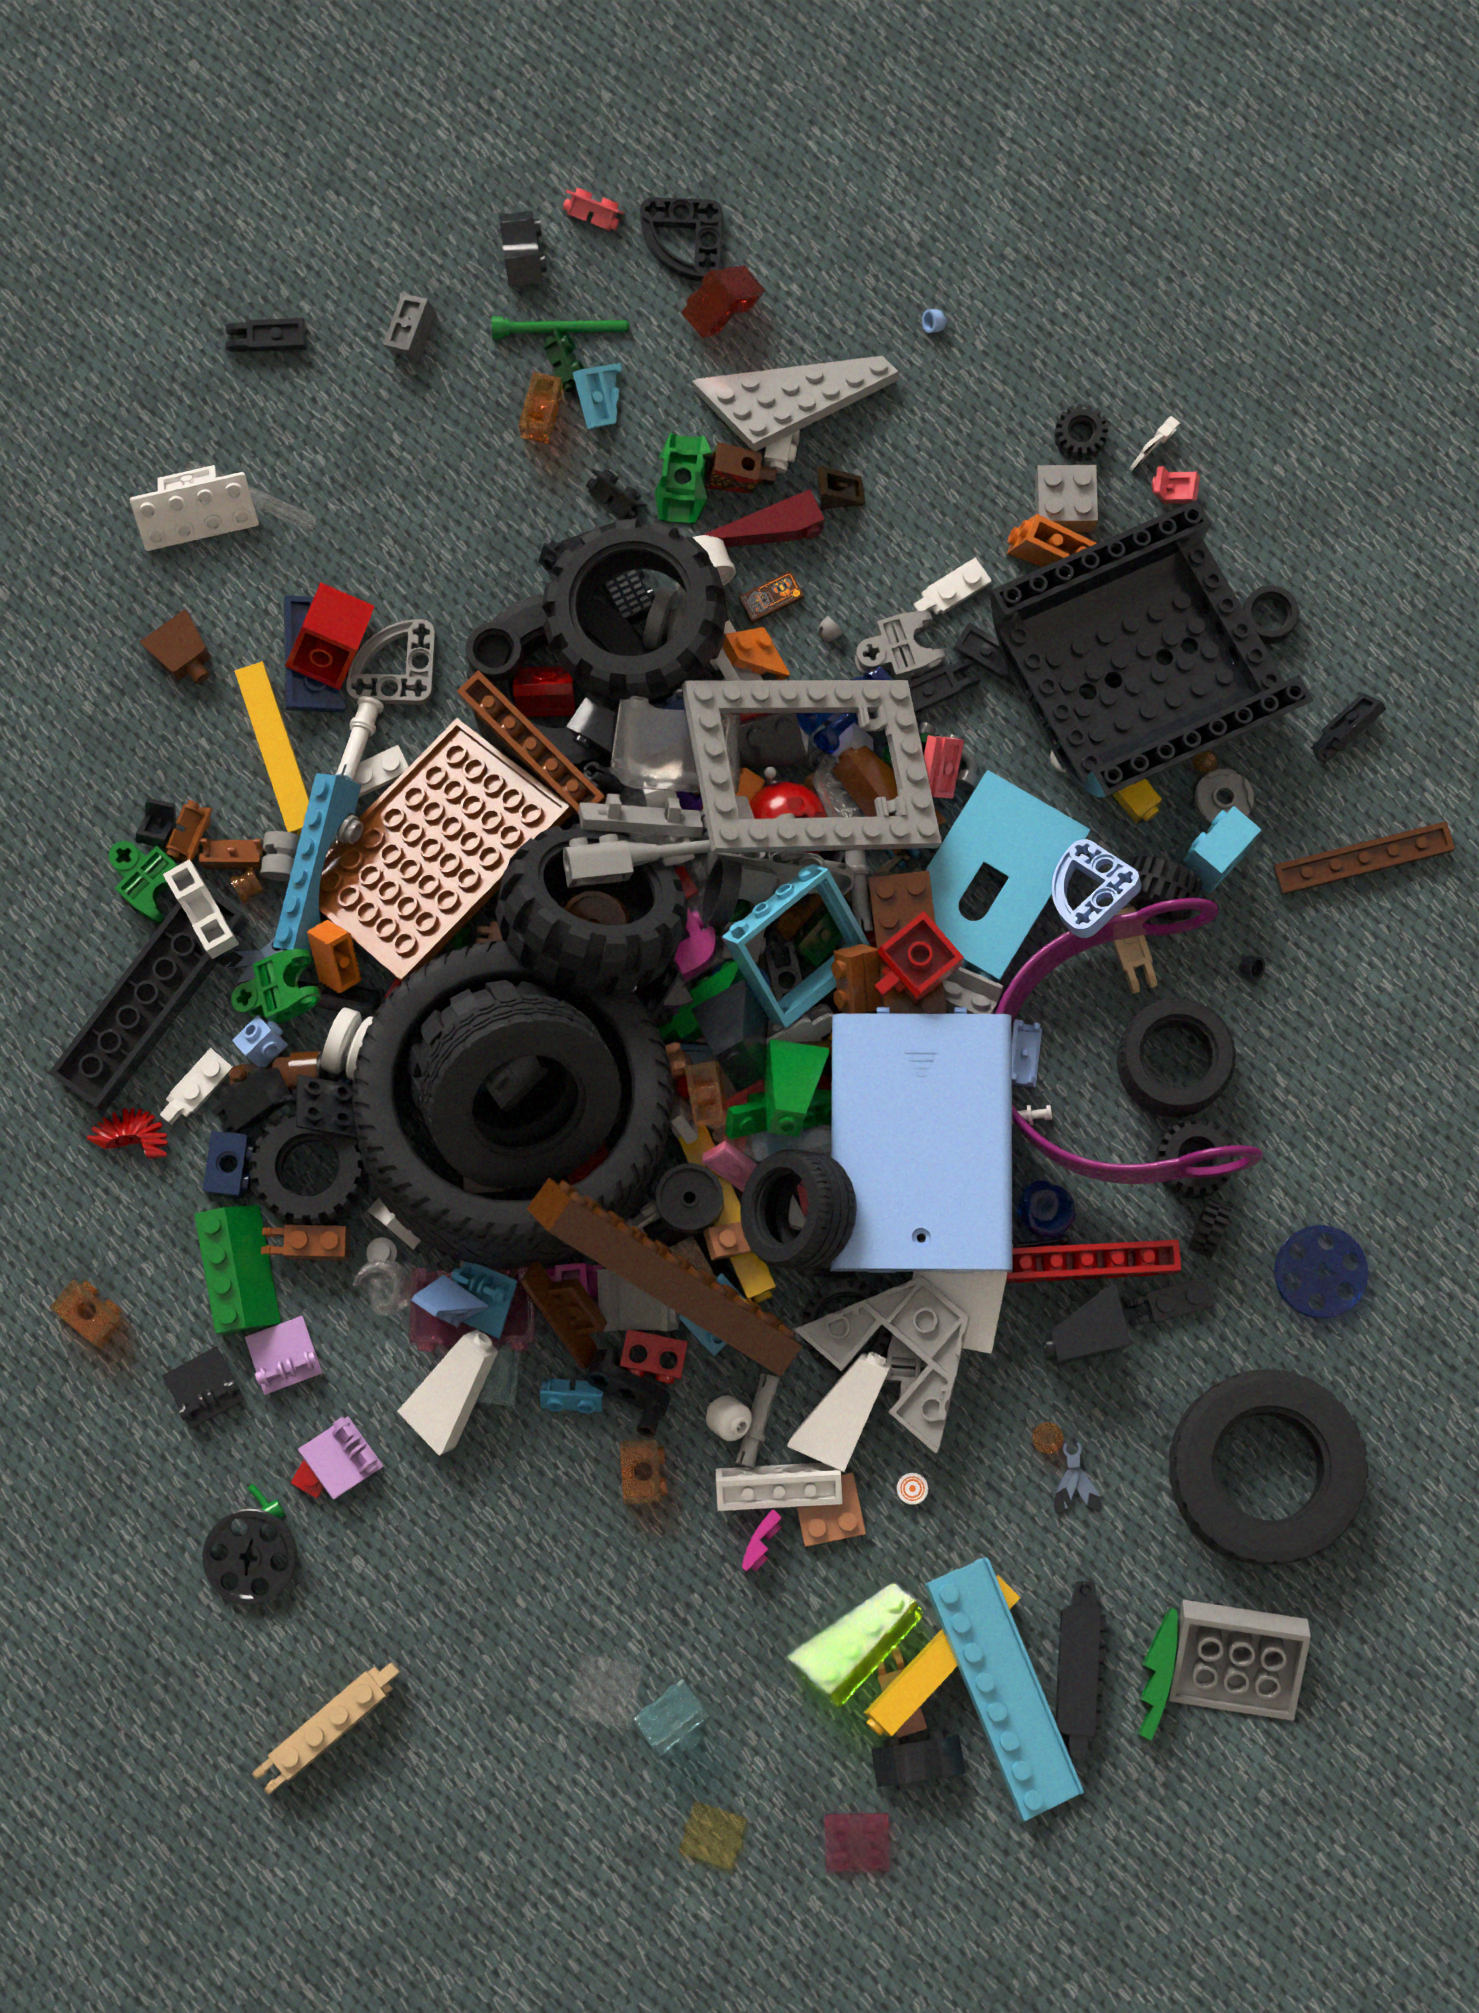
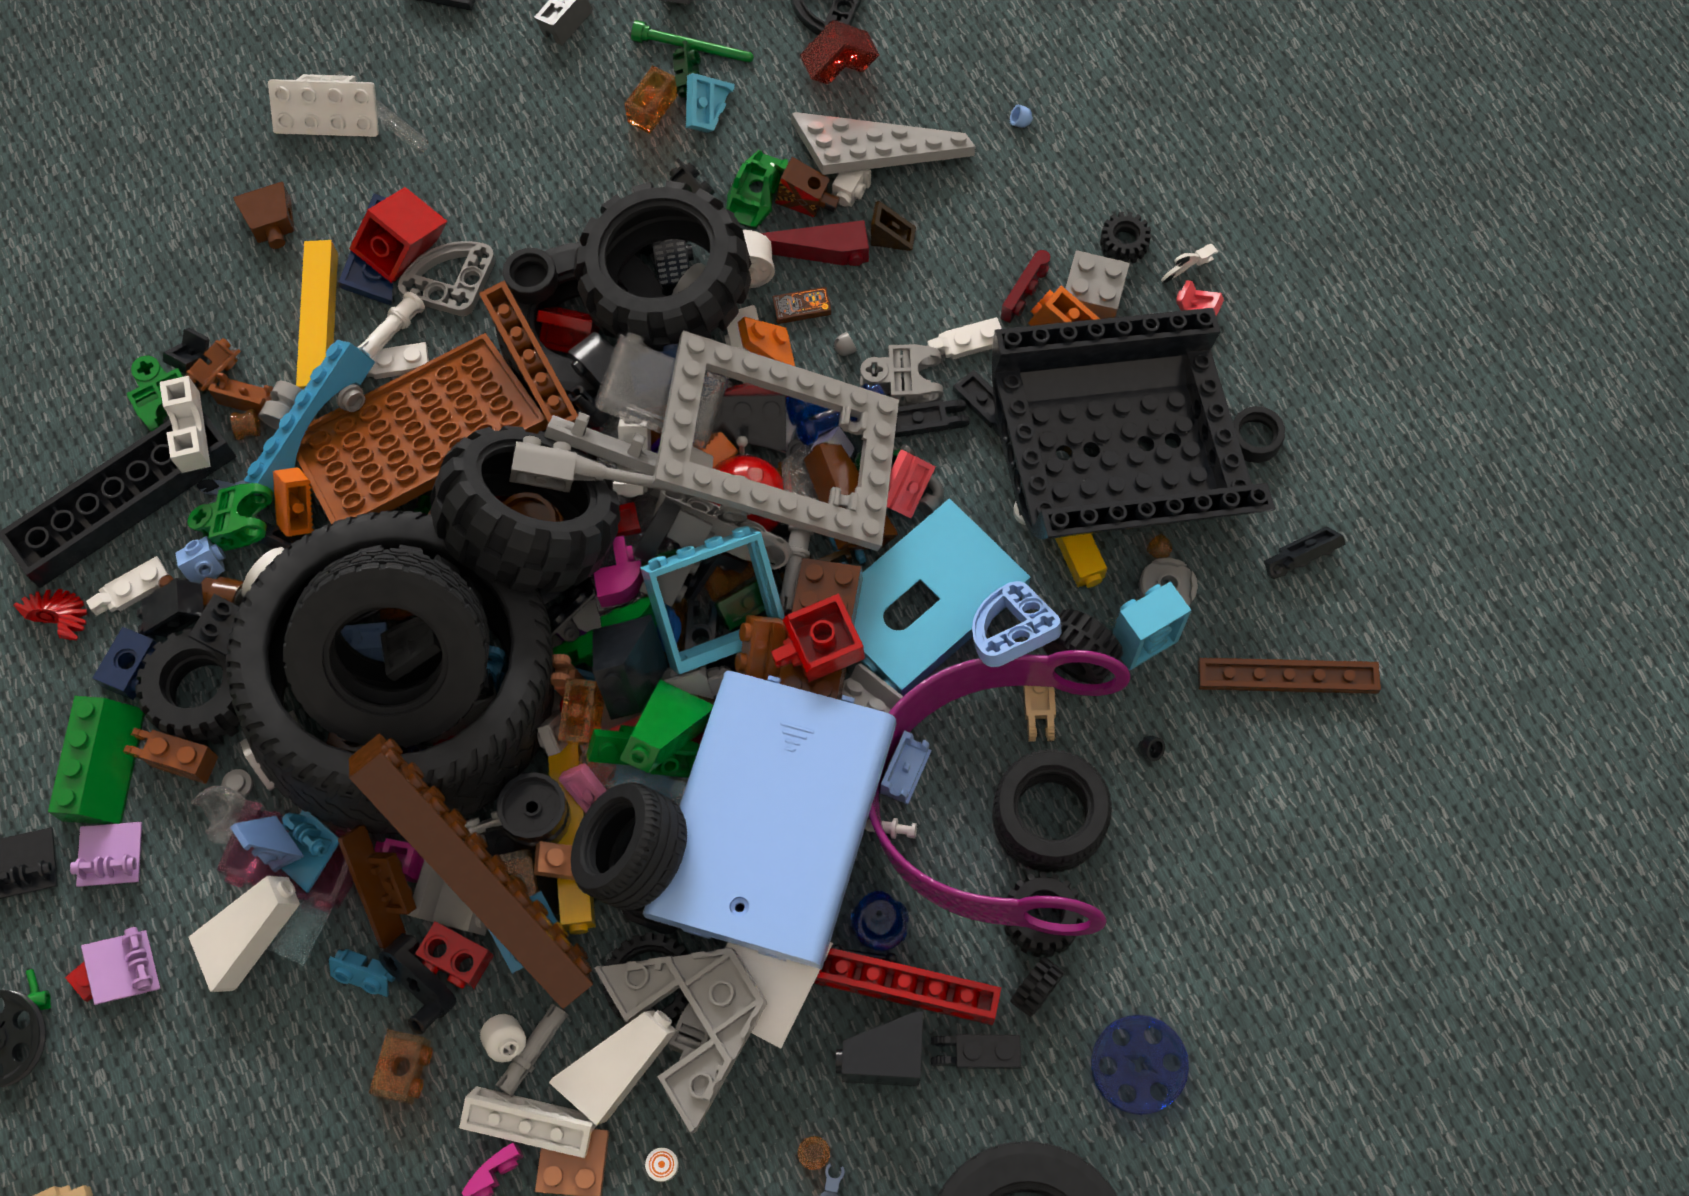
camera: 15 degrees right, 10 degrees down
(995, 515) = (1026, 284): none -> dark red plate

